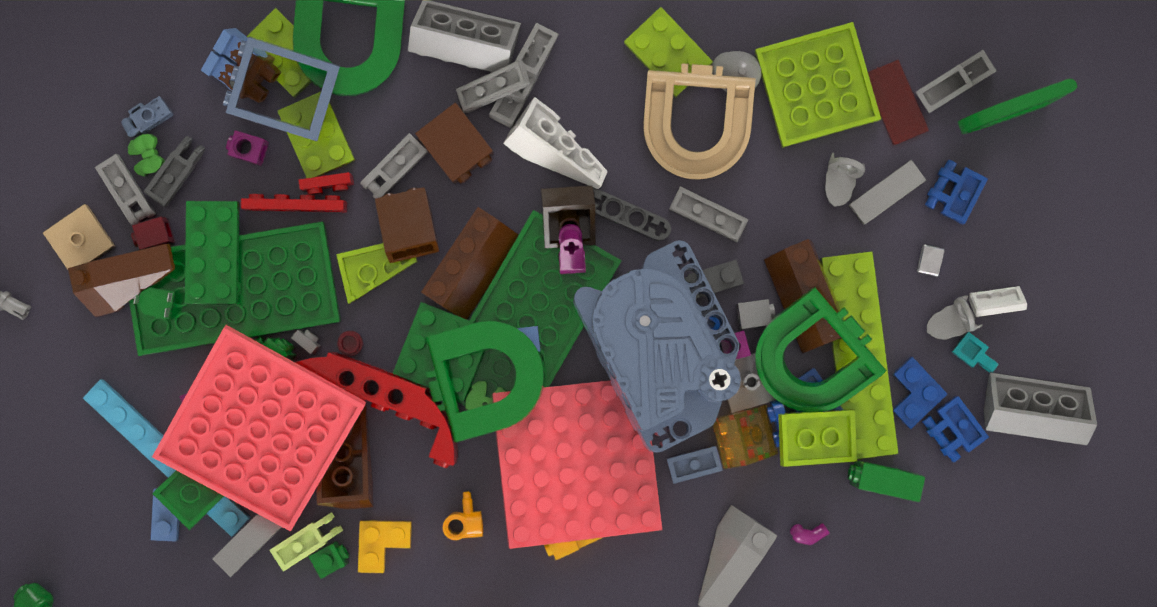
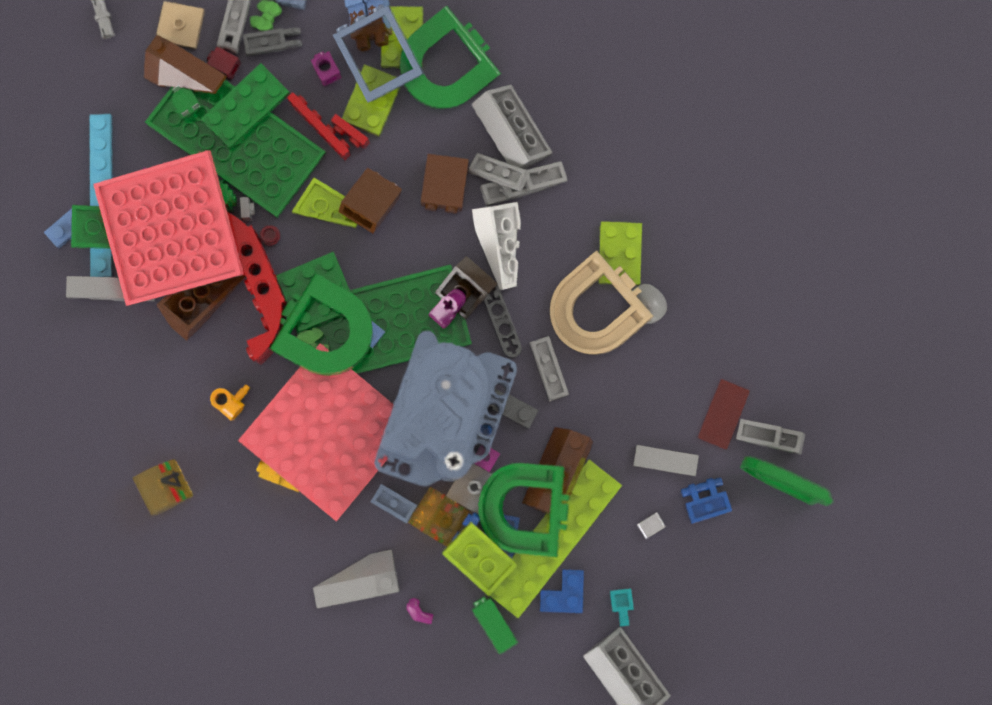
camera: 40 degrees right, 5 degrees down
(303, 543) = (126, 321): yellowish green hinge -> none
(329, 559) = (131, 345): green bracket -> none
(376, 537) = (170, 360): yellow plate -> none
(394, 166) = (398, 161): light grey plate -> none
(470, 264) = (383, 259): reddish brown slope -> none
(754, 313) = (517, 451): light grey brick -> none
(817, 84) = (687, 357): lime plate -> none
(842, 179) = (646, 425): light grey piece -> none
(953, 320) = (628, 573): light grey piece -> none
(962, 425) = (572, 640): blue plate -> none
(997, 301) = (666, 588): white plate -> none

